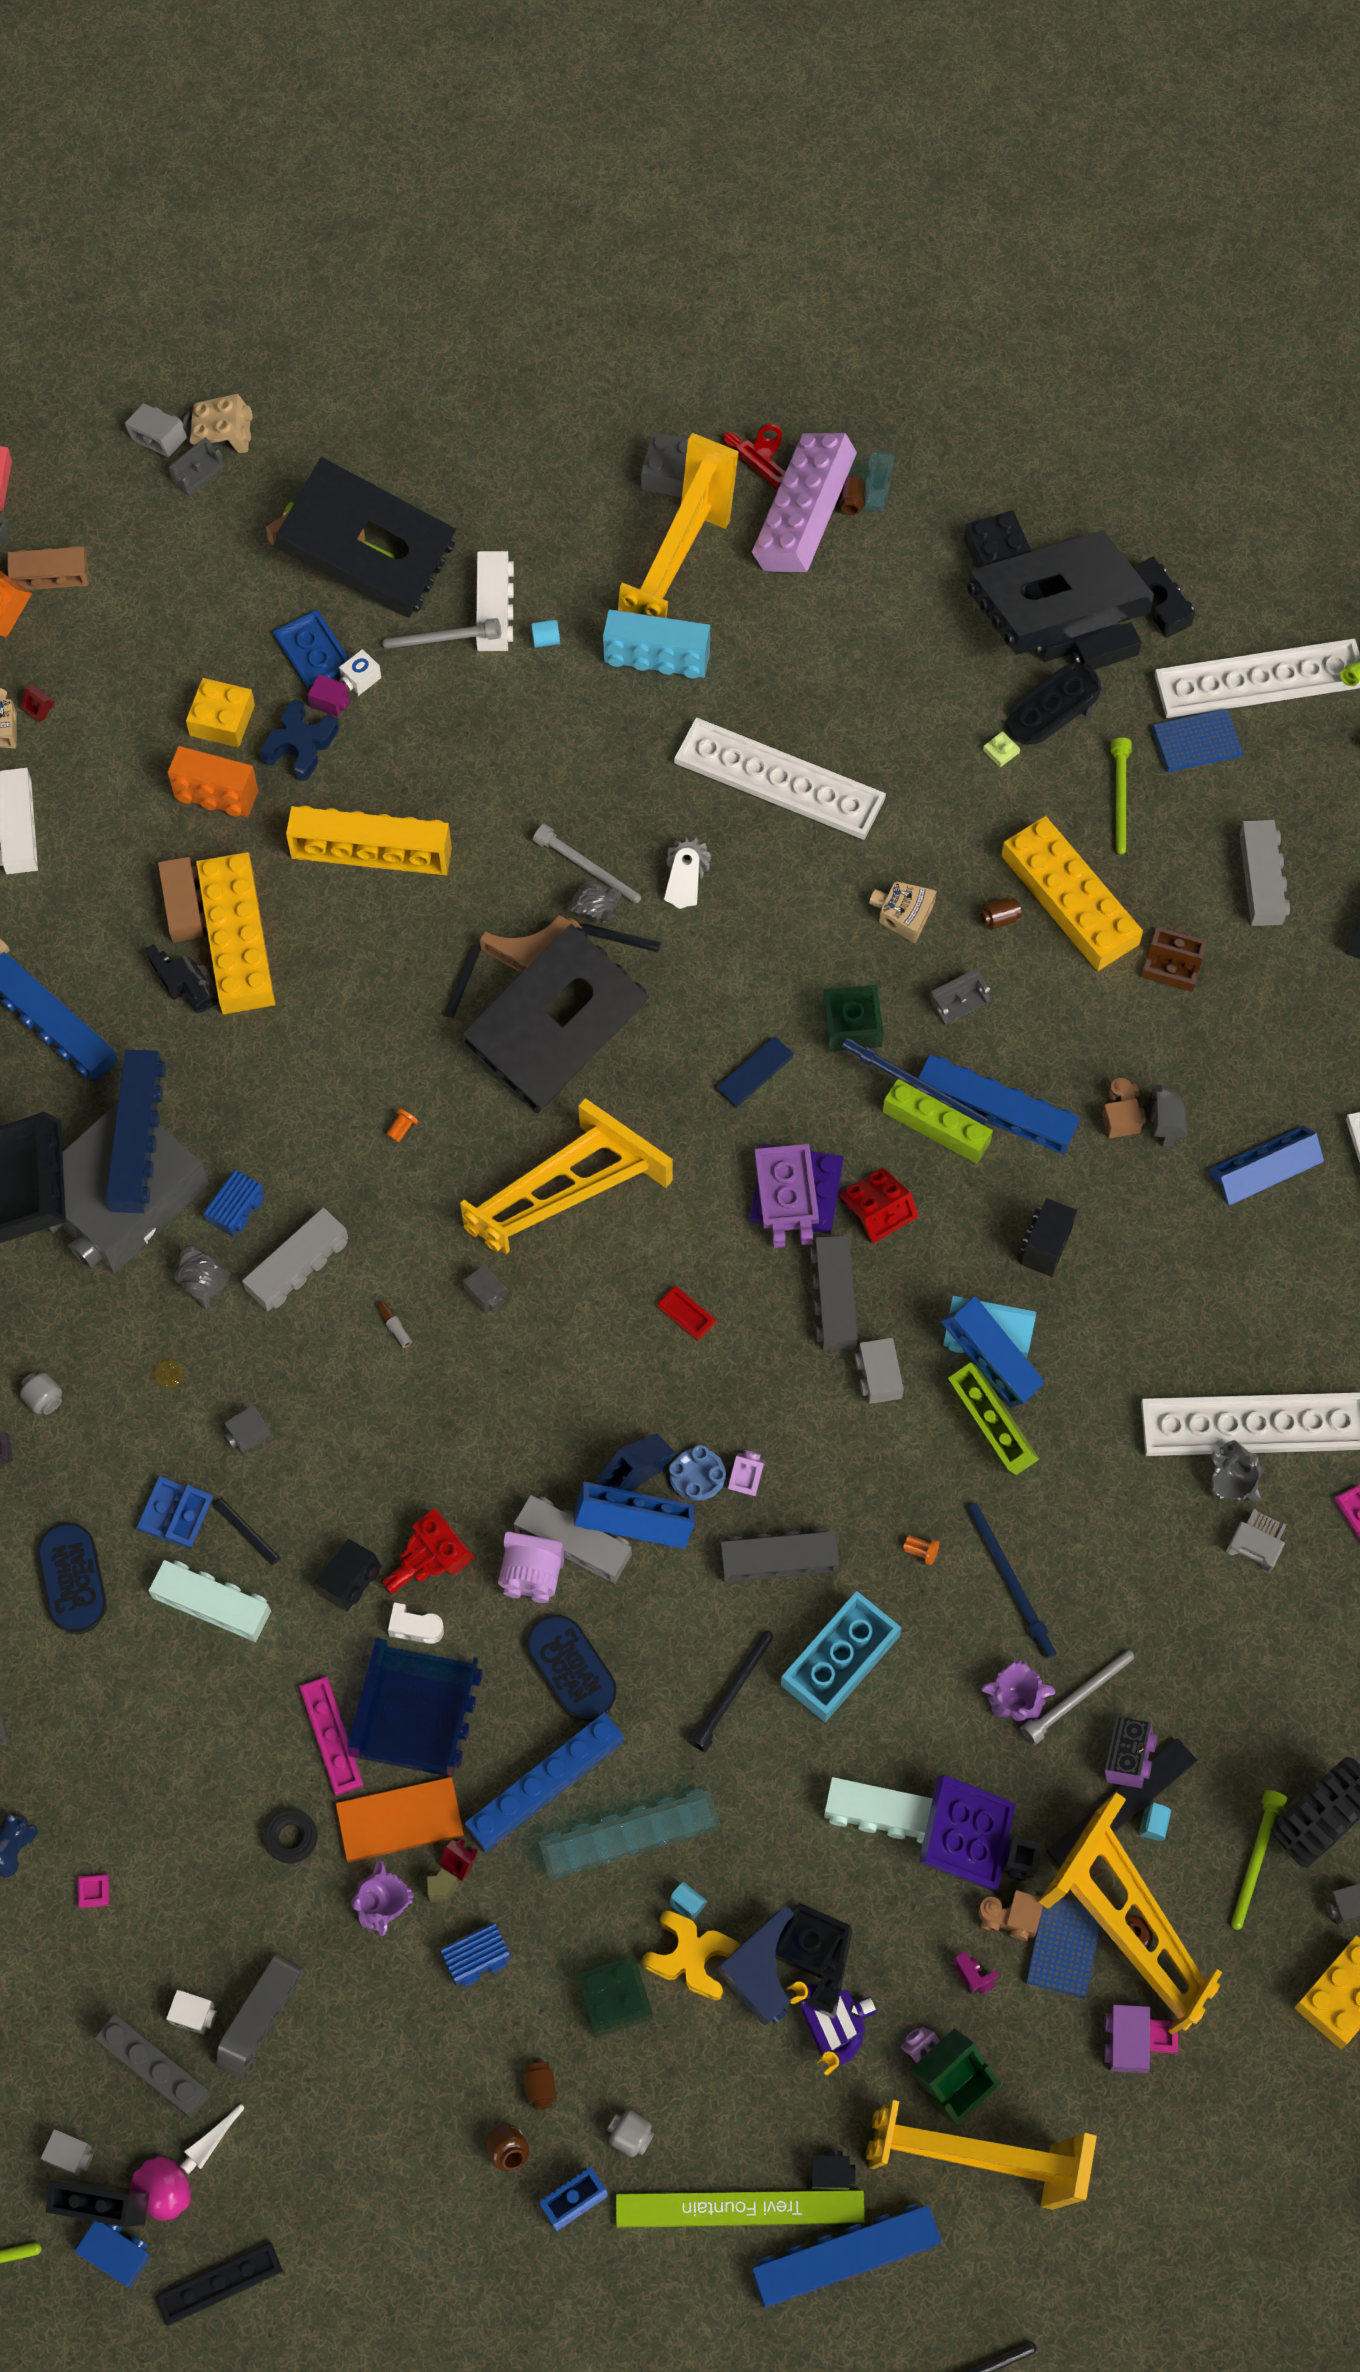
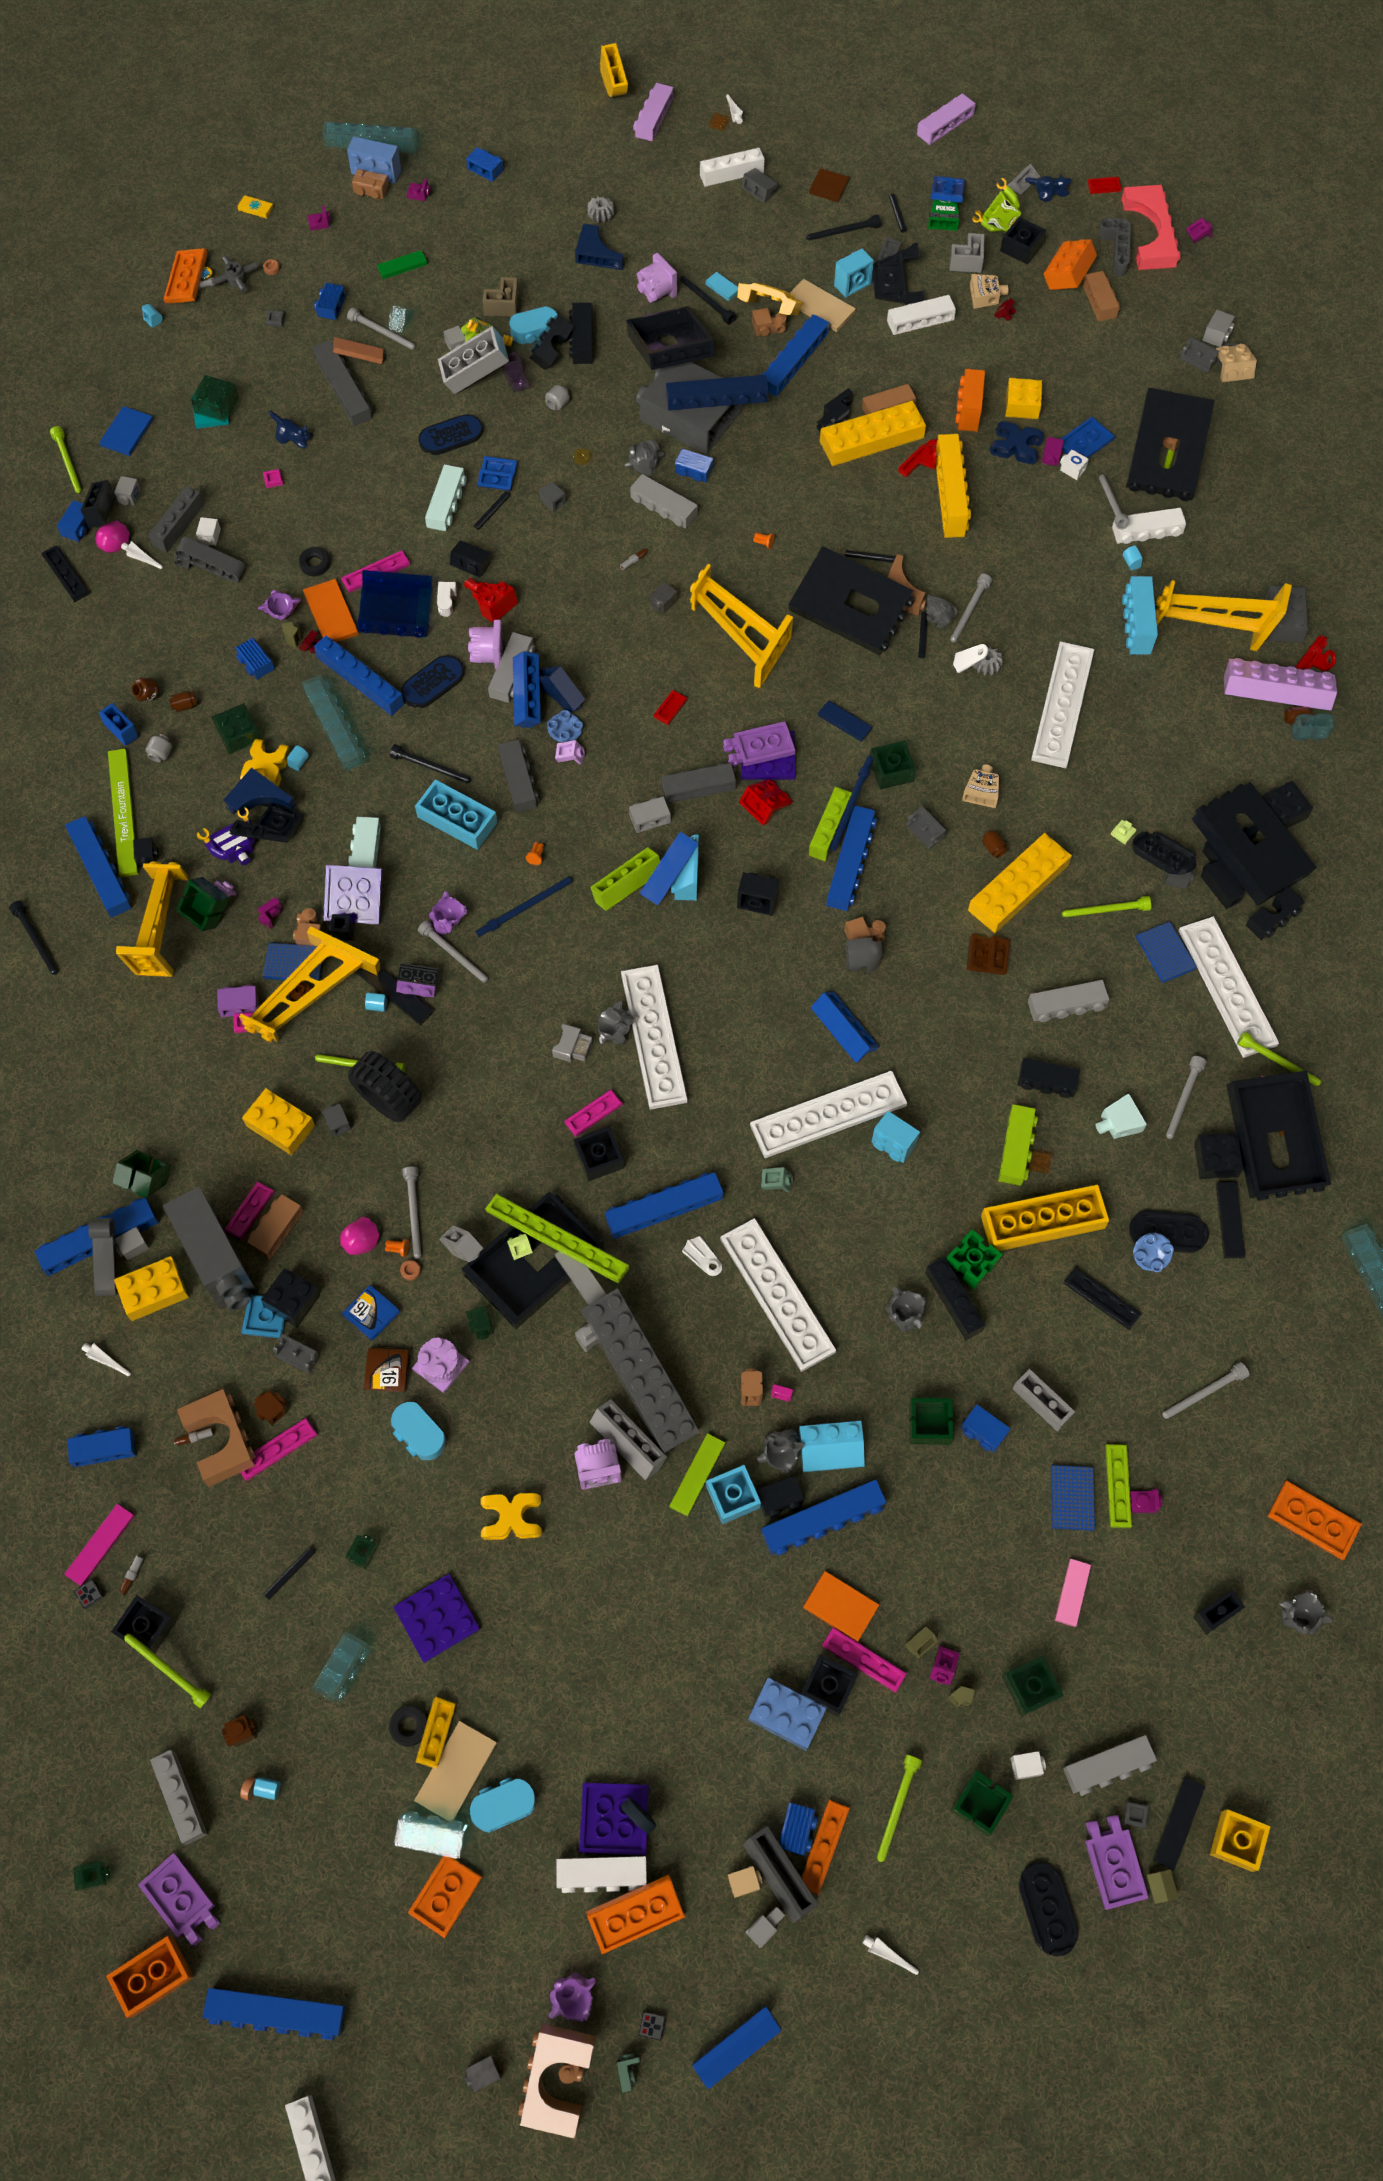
camera: 80 degrees right, 0 degrees up
(294, 873) = (924, 455): none -> red piece

